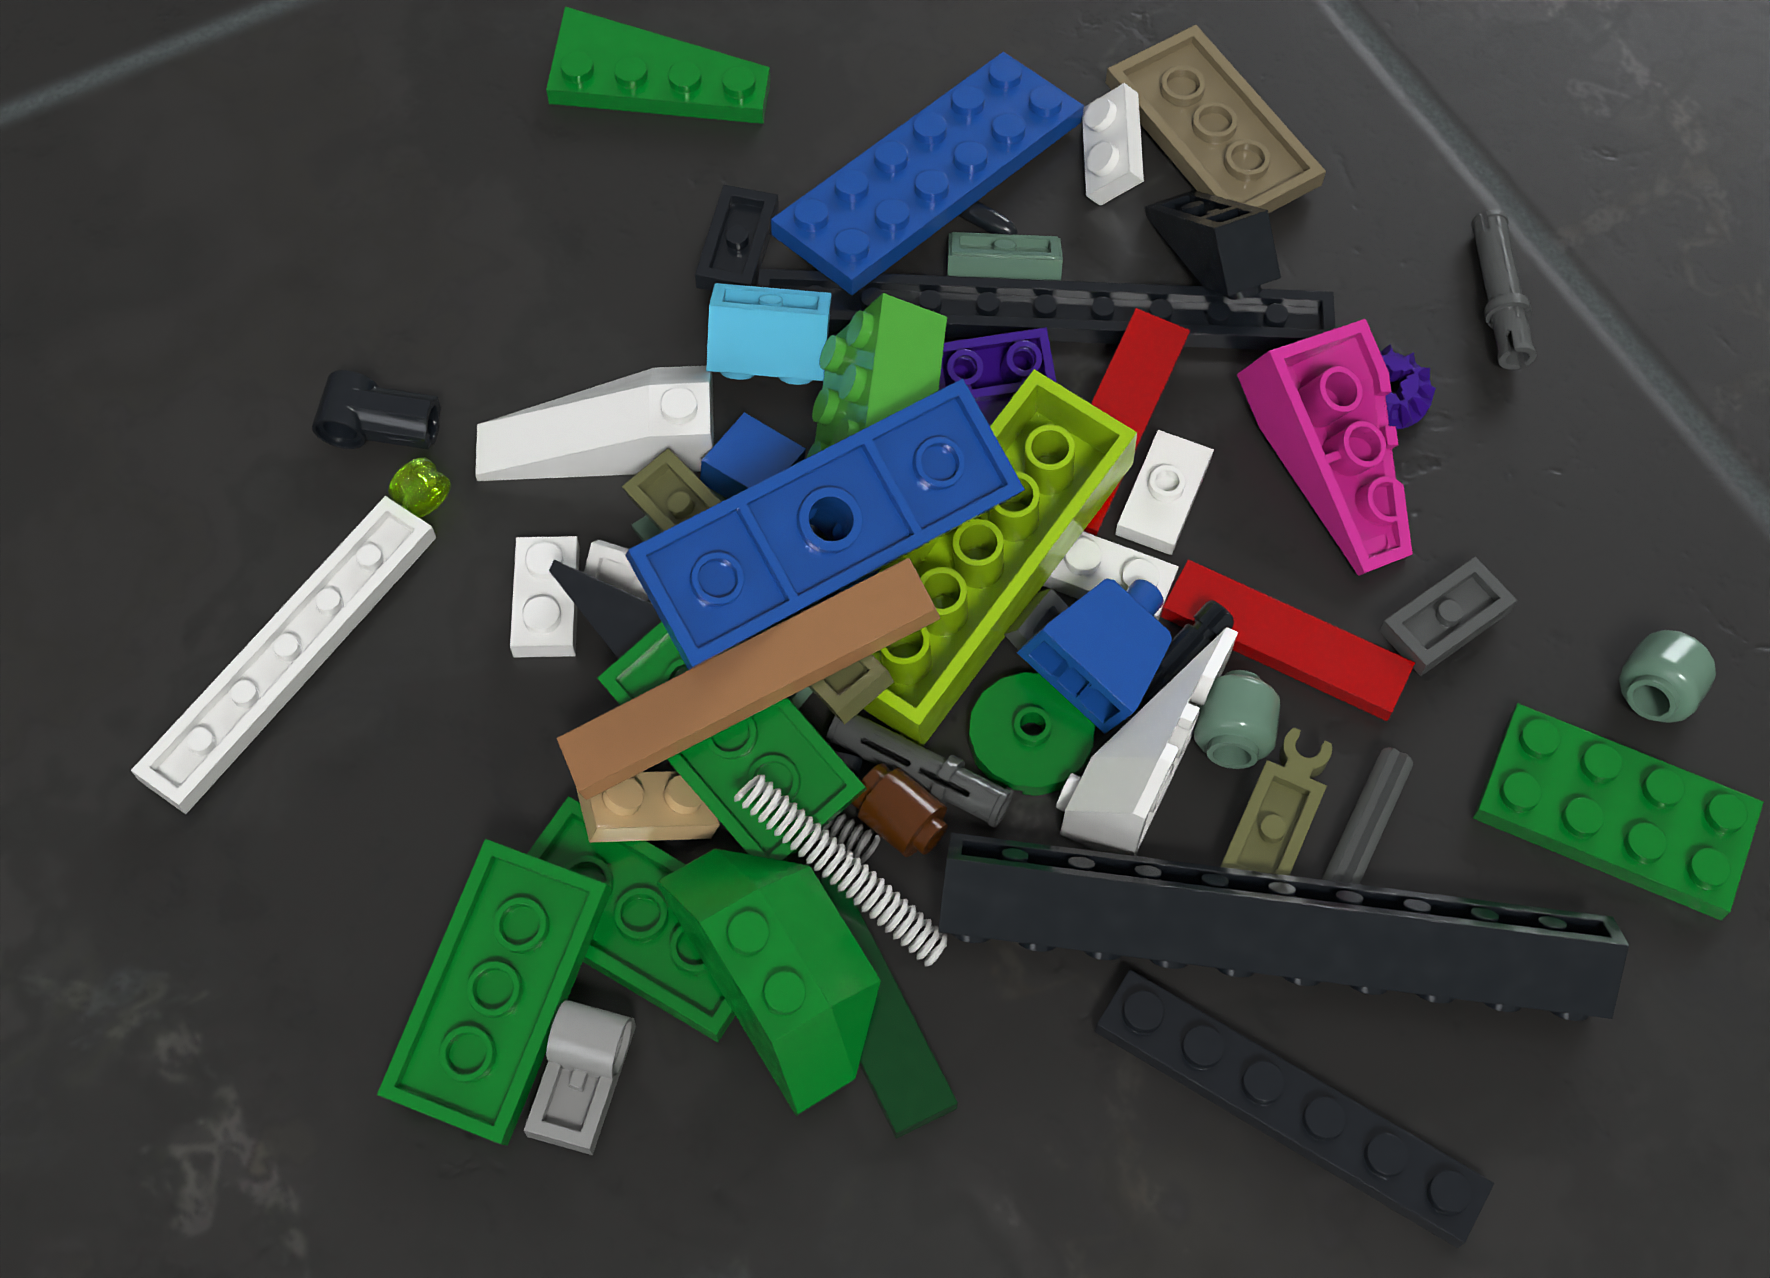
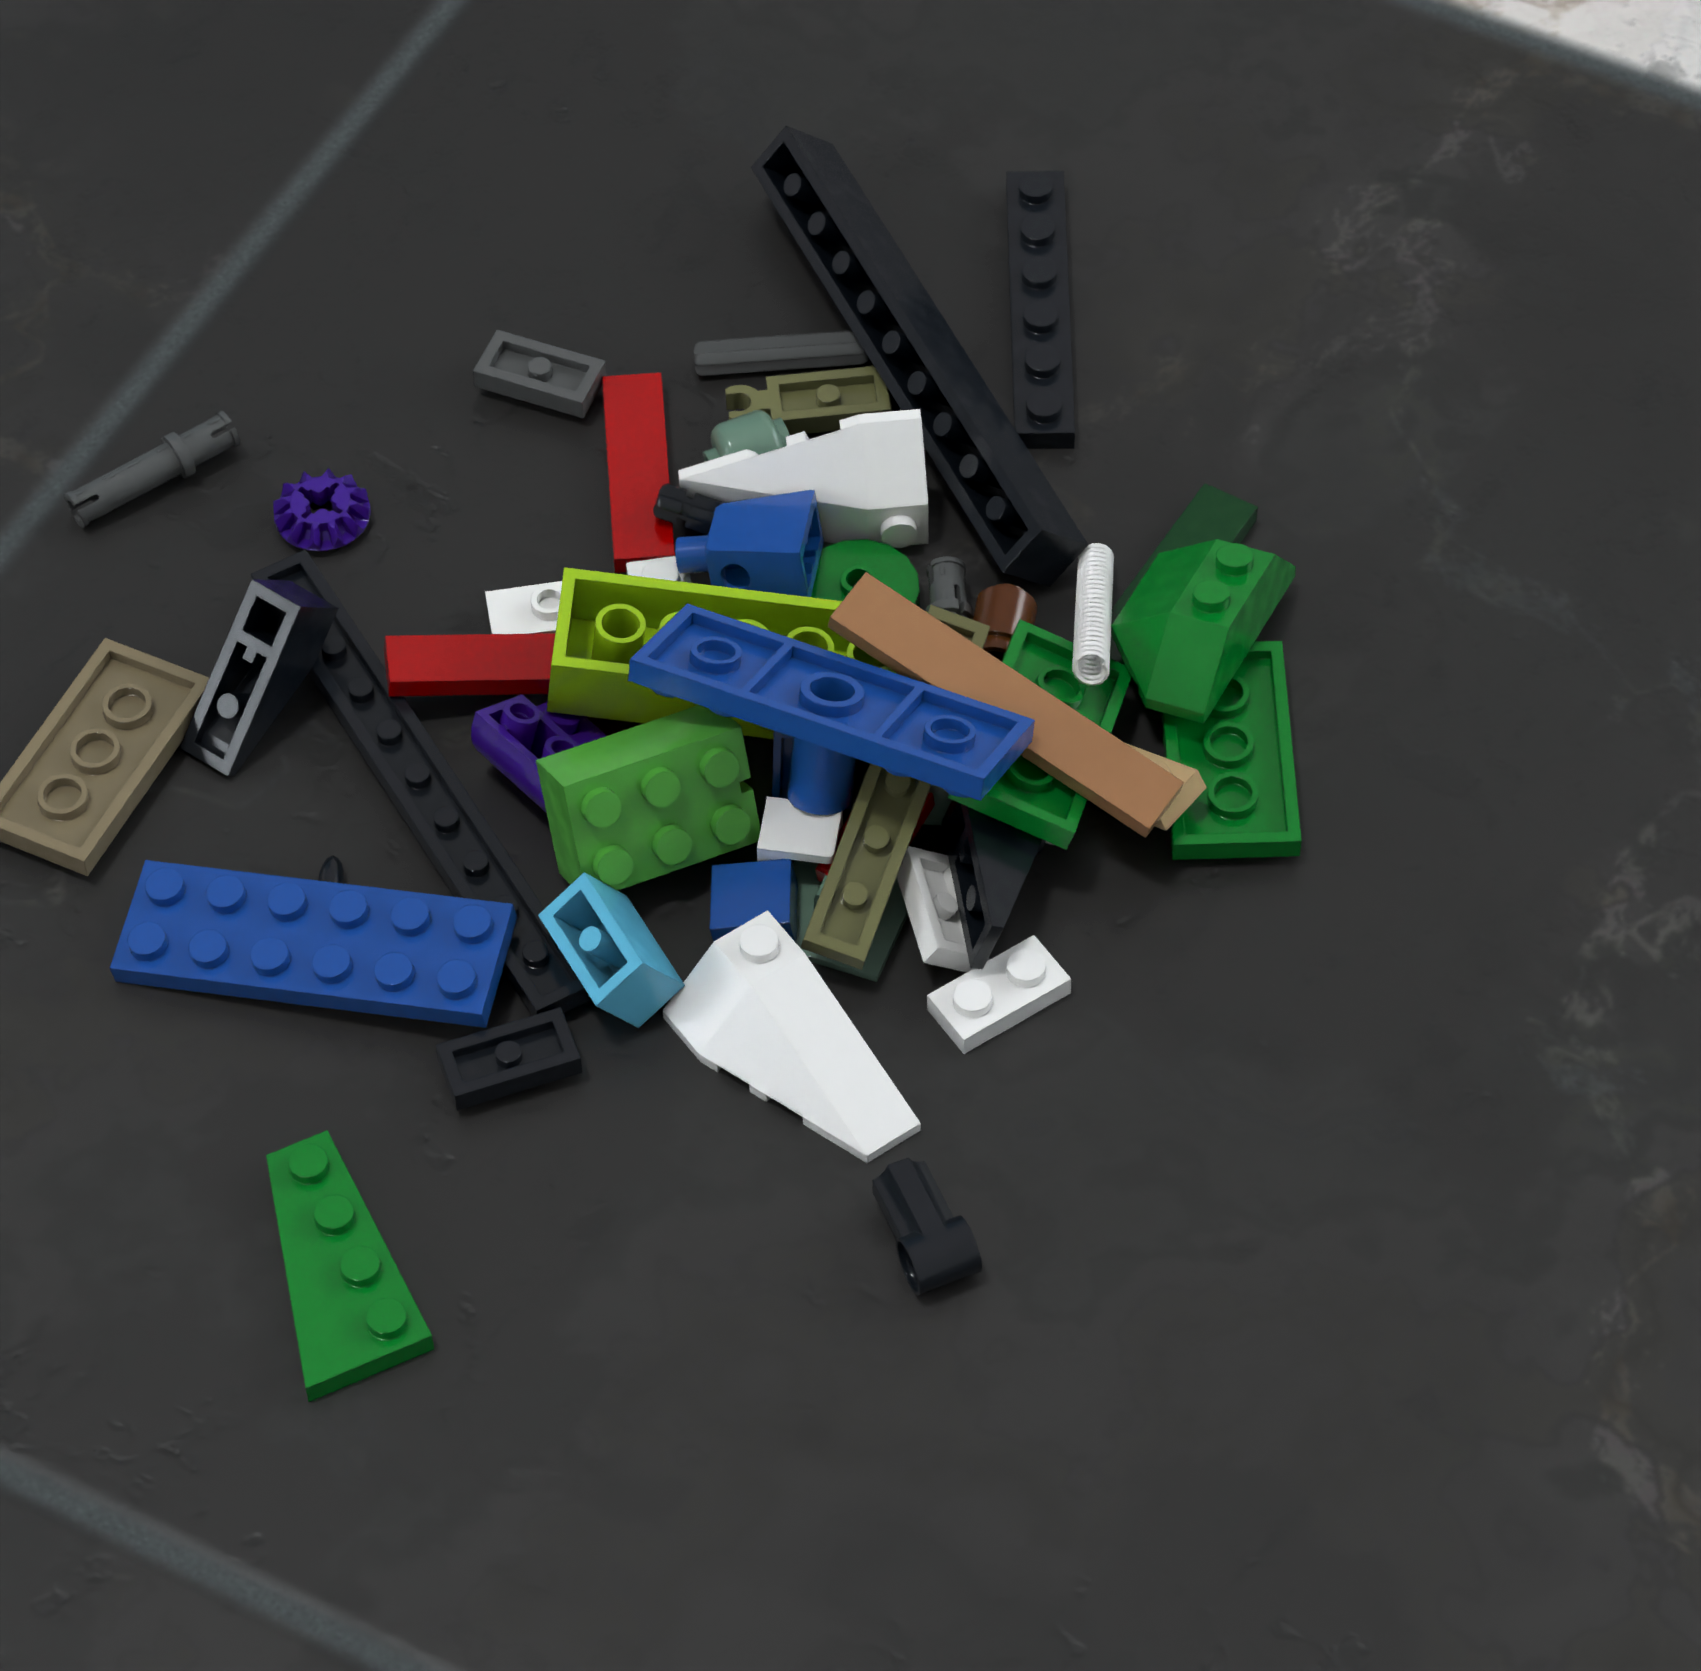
camera: 120 degrees left, 10 degrees down
(283, 655) = (1208, 1138): white plate -> none
(419, 487) = (973, 1142): clear neon green bush -> none
(495, 992) = (1369, 786): green plate -> none
(580, 1076) = (1370, 716): light grey plate -> none
(1004, 256) = (373, 843): sand green slope -> none
(1112, 144) = (179, 817): white plate -> none
(1331, 429) = (412, 518): dark pink wedge -> none
(1619, 811) = (638, 220): green plate -> none
(1667, 676) = (499, 219): sand green head -> none

